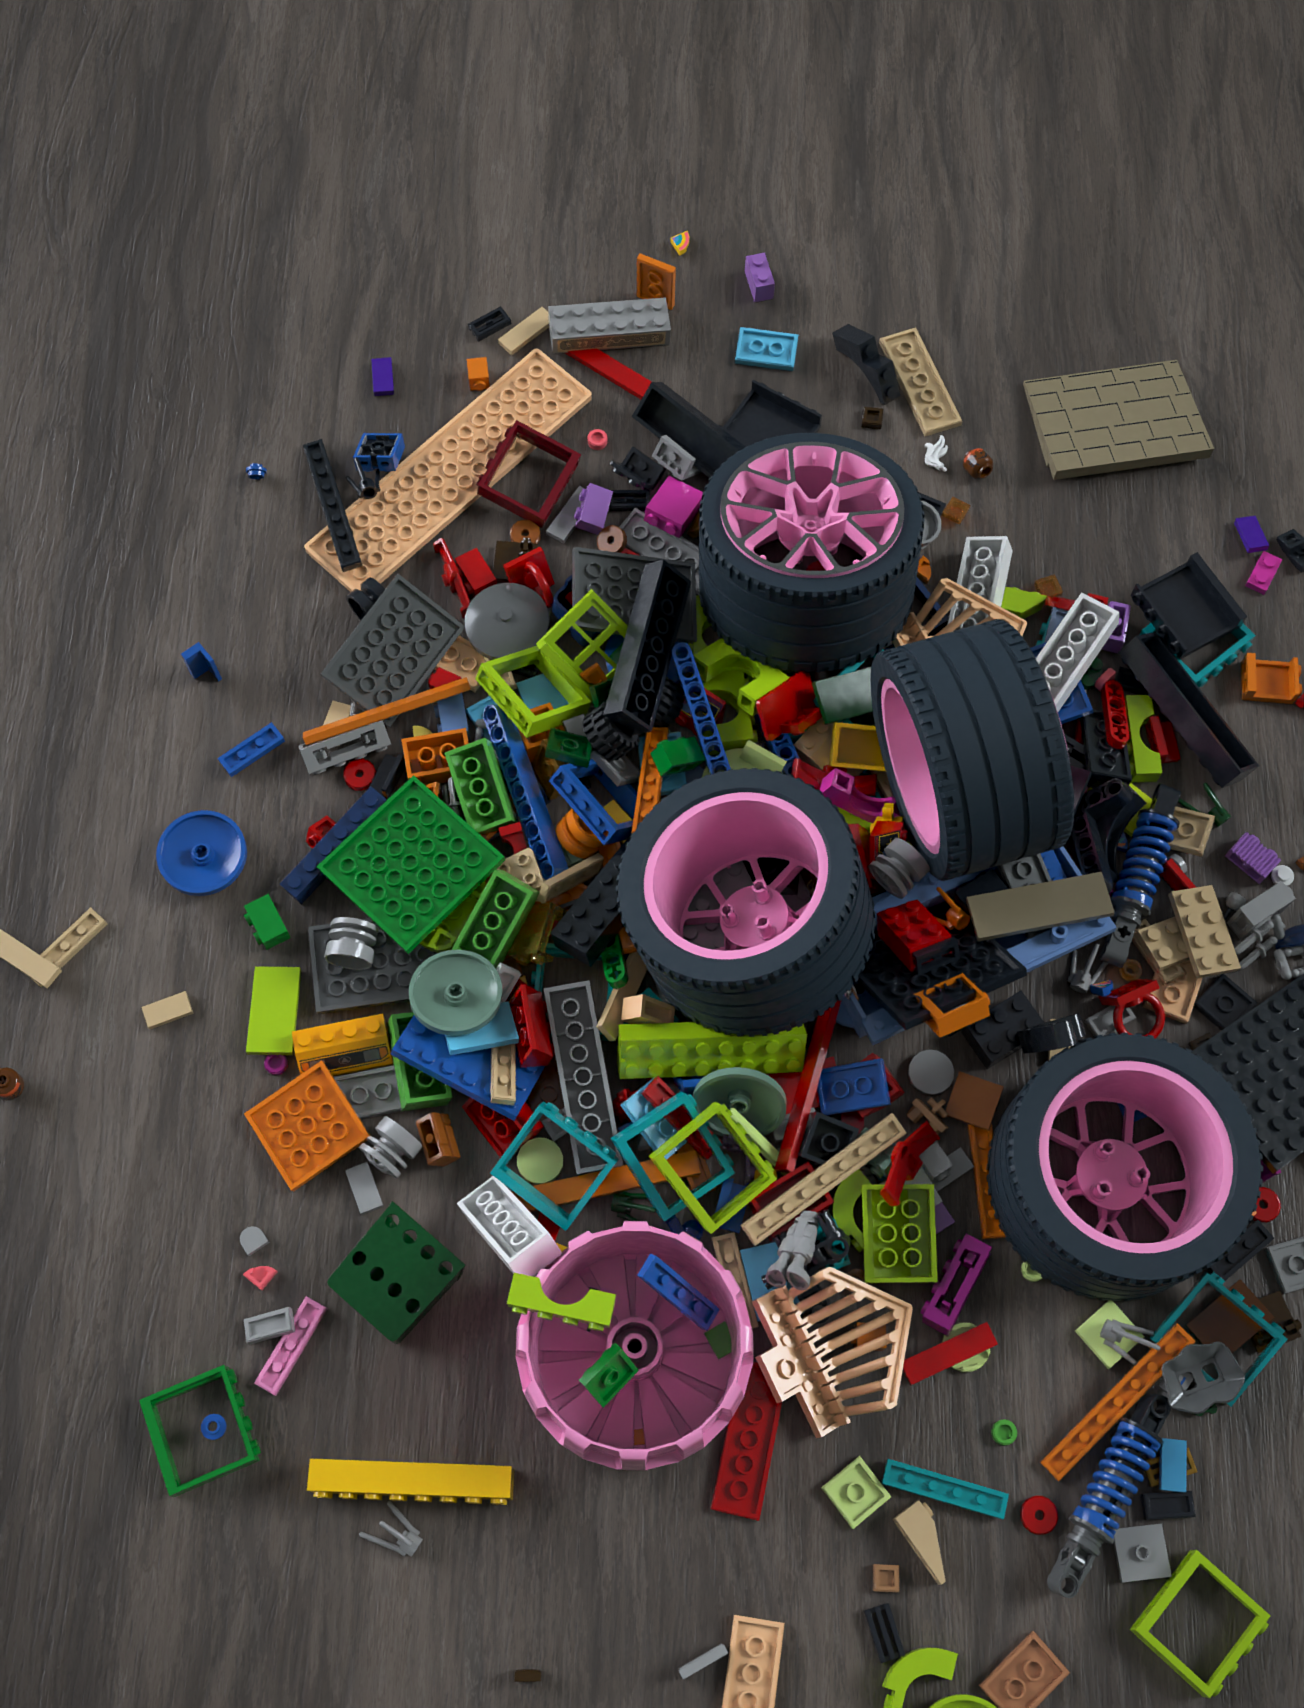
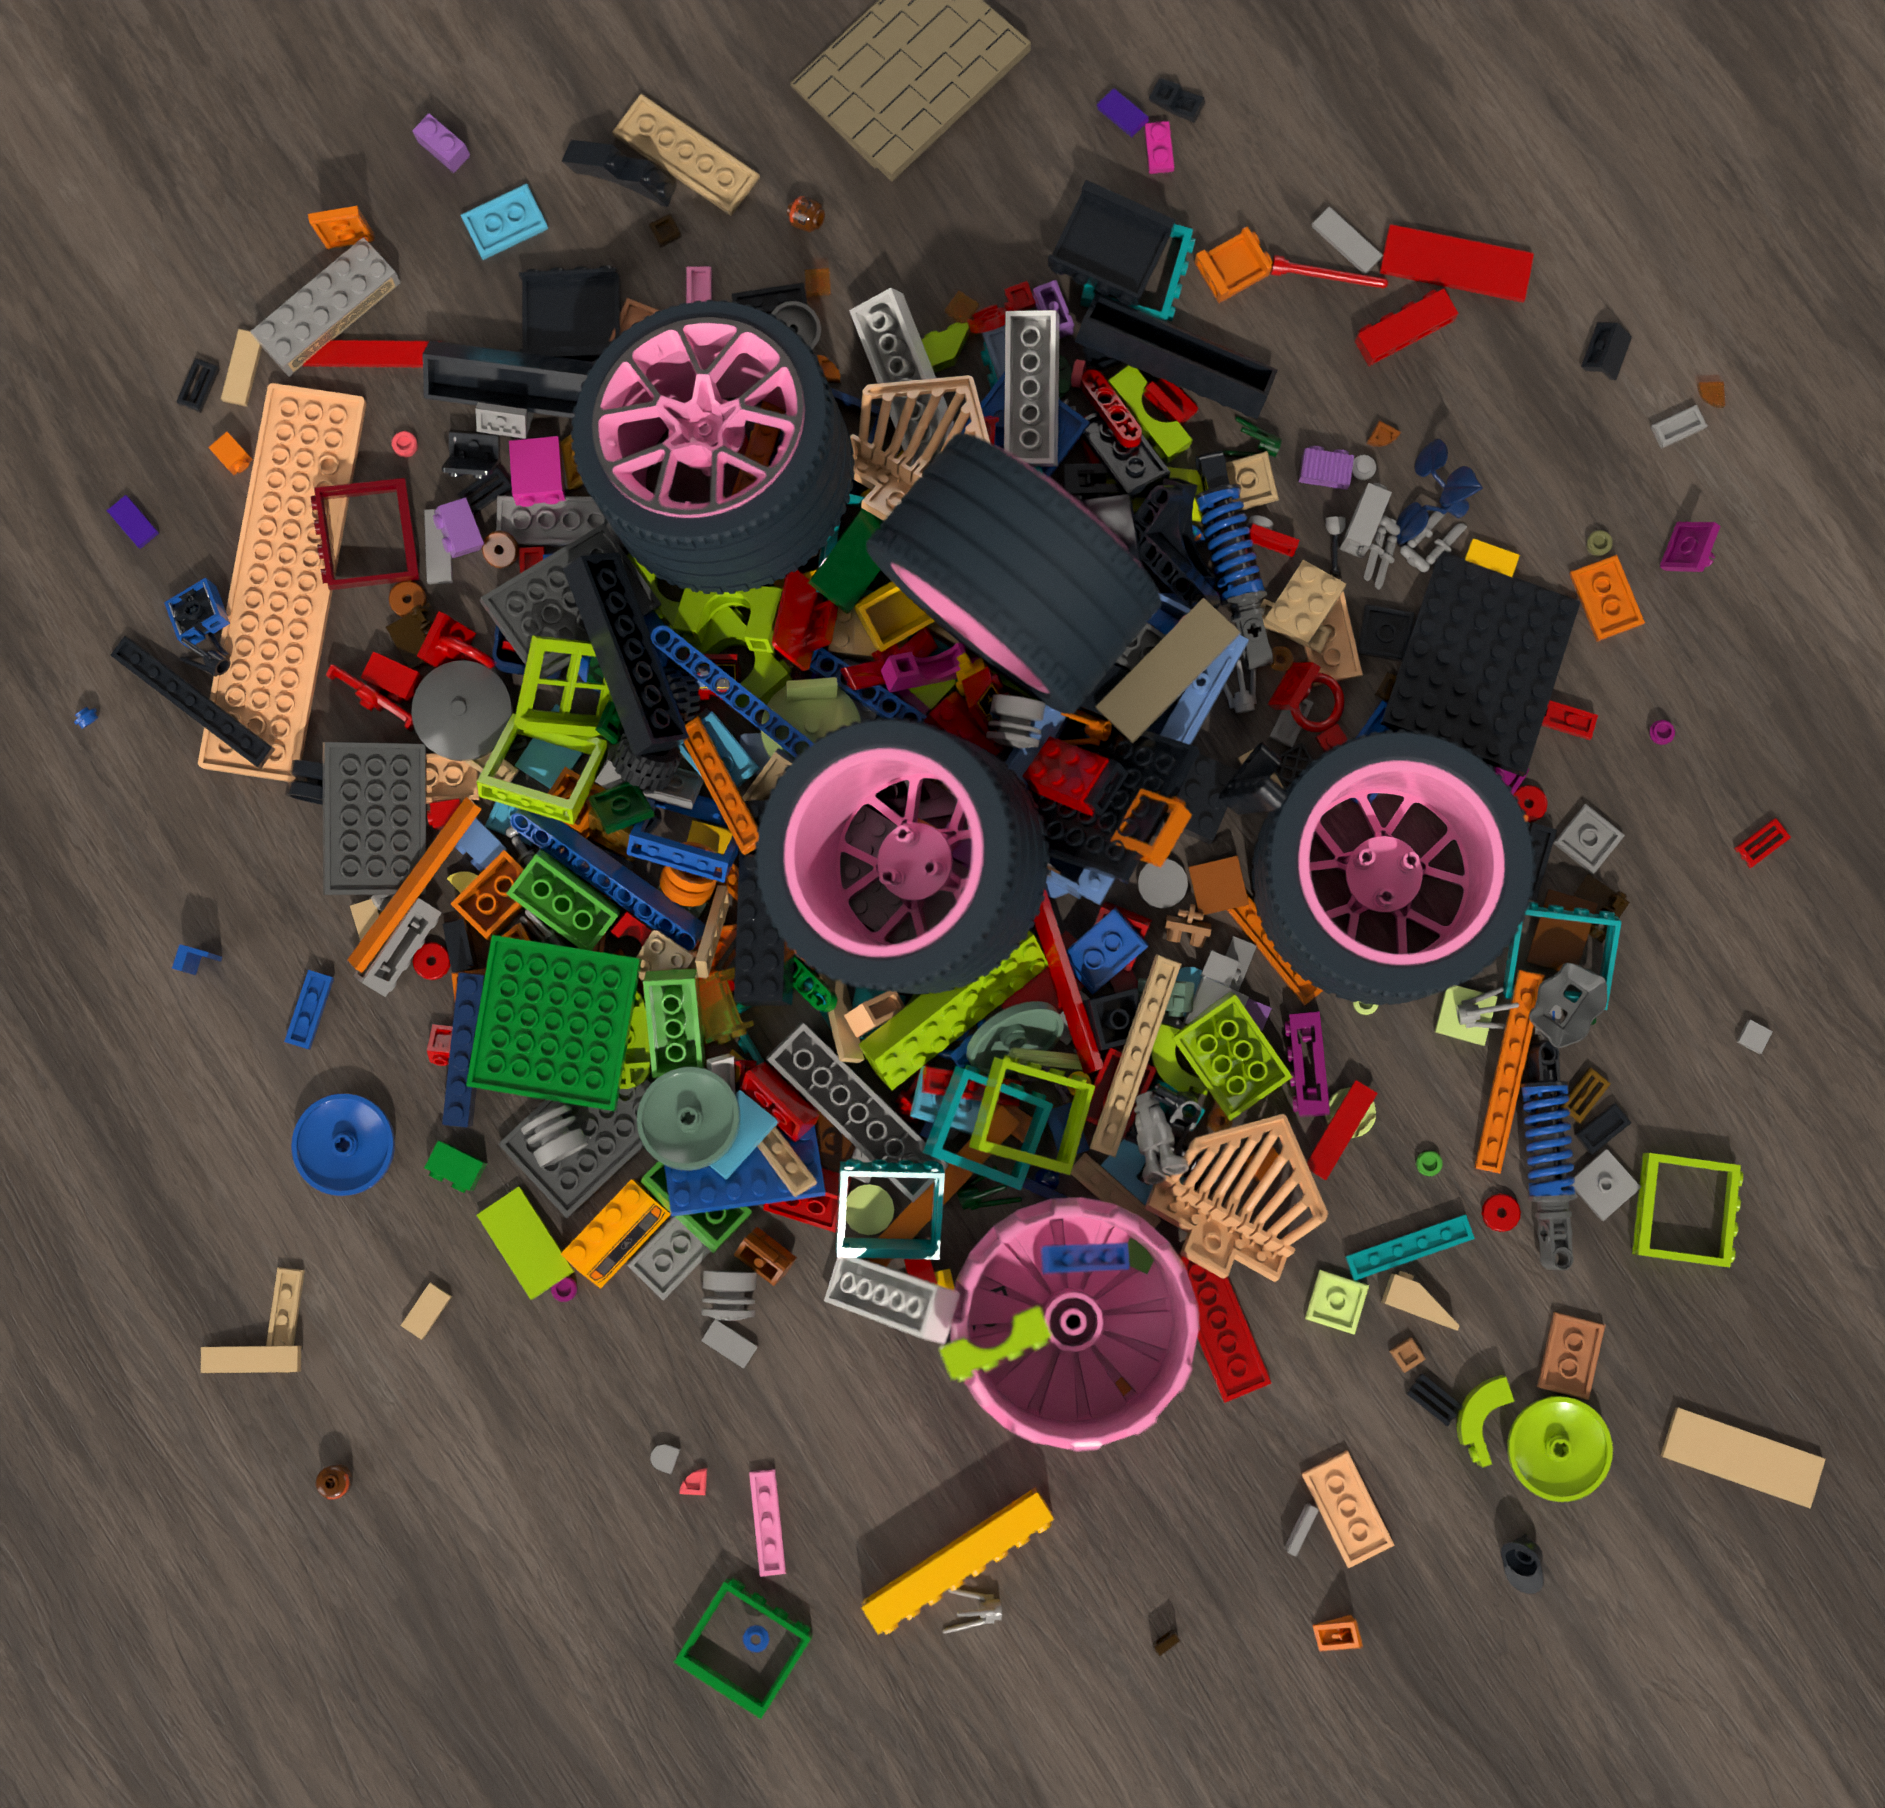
camera: 30 degrees left, 15 degrees up
(269, 1325) = (736, 1520): light grey tile -> none
(307, 1125) = (637, 1325): orange plate -> none
(393, 1276) = (816, 1402): dark green piece -> none
(593, 674) = (588, 711): orange tile -> none
(608, 1374) = (1072, 1367): green plate -> none
(677, 756) = (729, 742): green brick -> none
(680, 242) = (328, 153): tile -> none
(906, 1162) = (1198, 989): red plate -> none
(934, 453) = (754, 228): white piece -> none
(1102, 988) = (1267, 695): blue tile -> none
(1173, 1465) = (1587, 1093): dark azure tile -> none
(1204, 931) = (1326, 579): tan plate -> none

